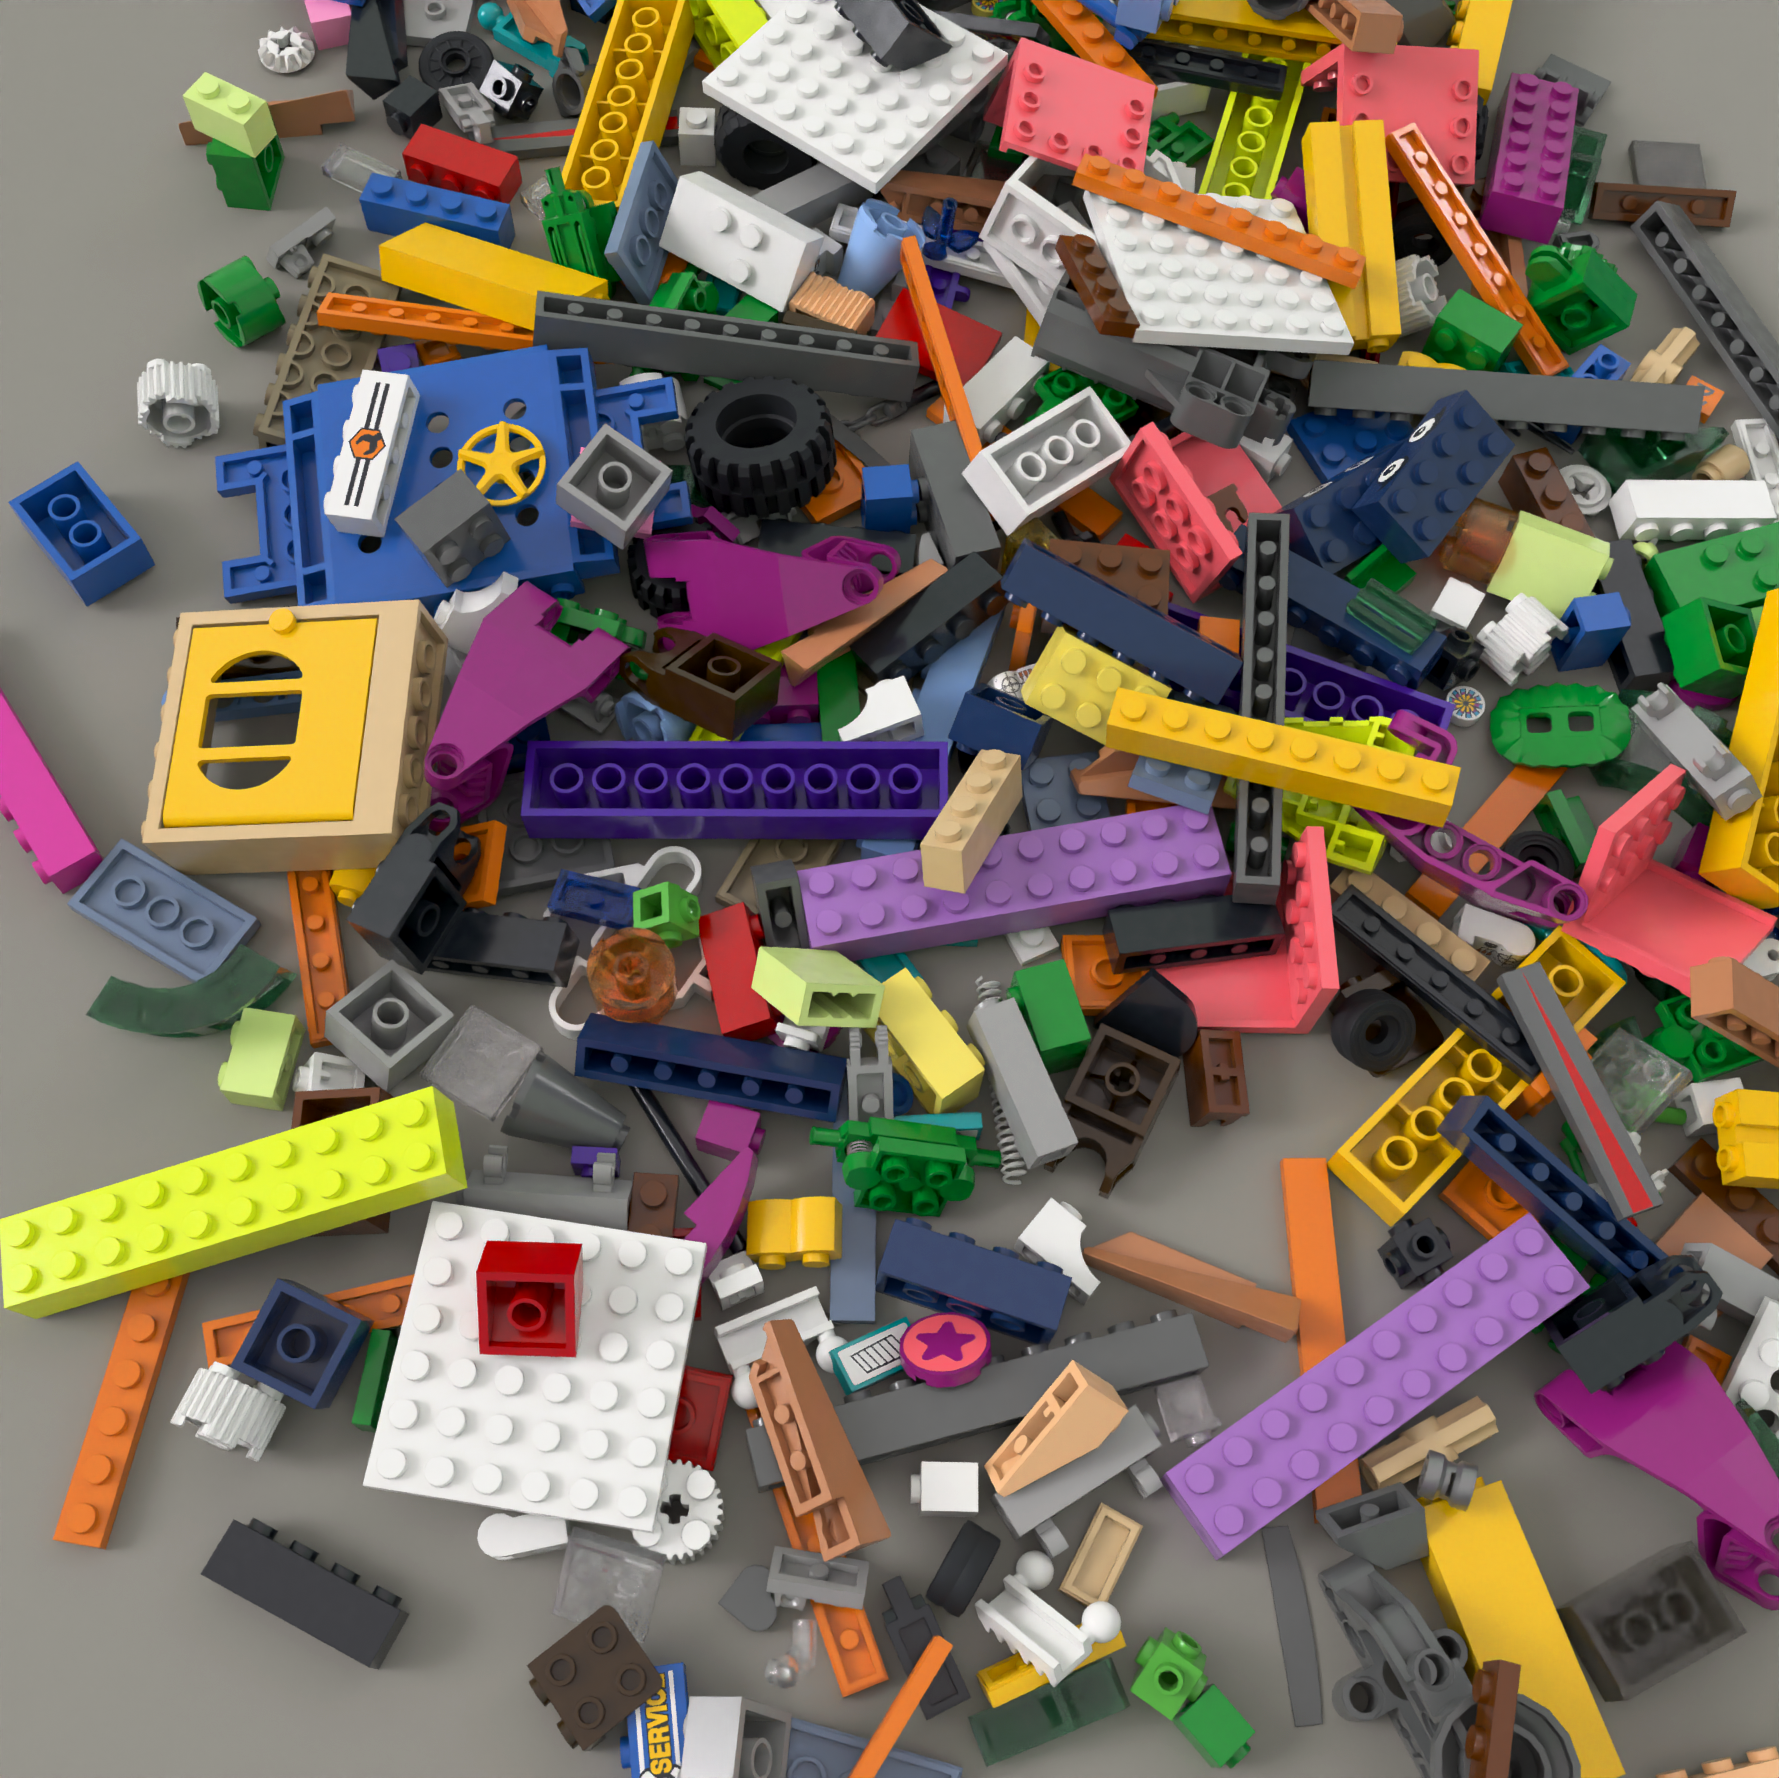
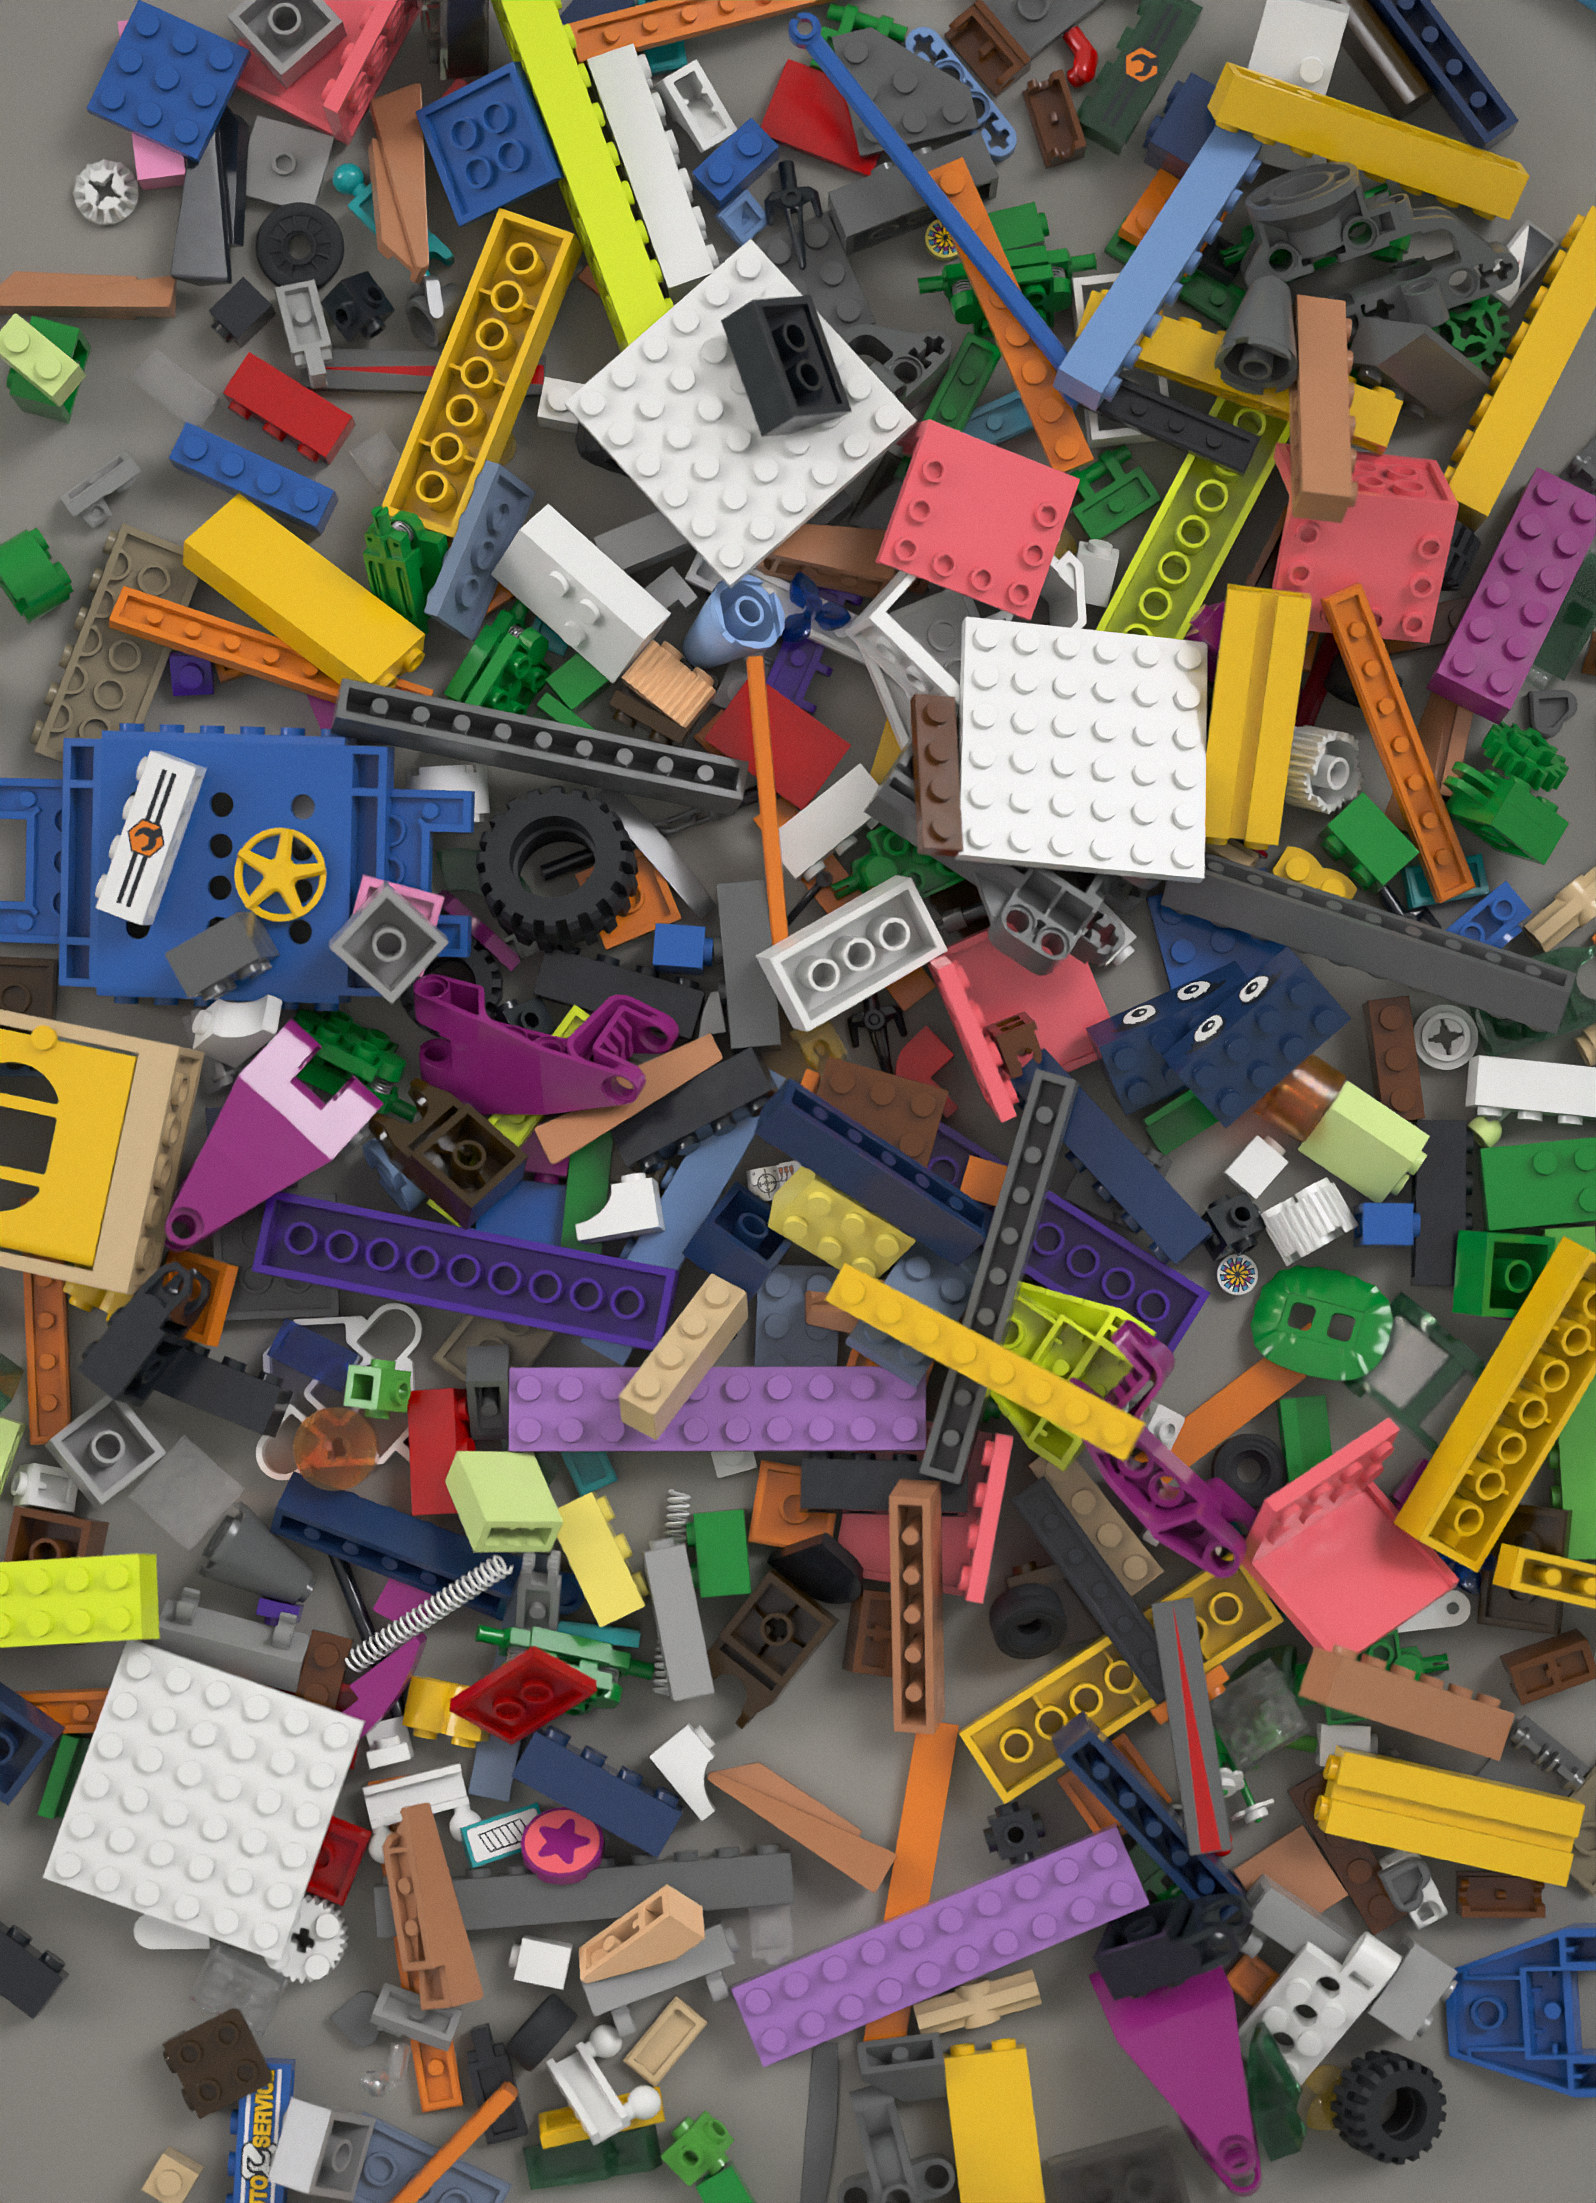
camera: 15 degrees right, 20 degrees up
(529, 1298) = (202, 1751): red slope -> none
(771, 1114) = (486, 1577): none -> white piece
(875, 1178) = (523, 1695): none -> red tile
(993, 28) = (918, 307): black tile -> none
(1219, 220) = (1098, 693): orange plate -> none
(1262, 1030) = (917, 1606): none -> nougat brick
(1395, 611) = (1139, 1170): clear green tile -> none
(1436, 1477) = (964, 2038): flat silver wheel -> none
(1696, 749) = (1422, 1405): light grey brick -> none

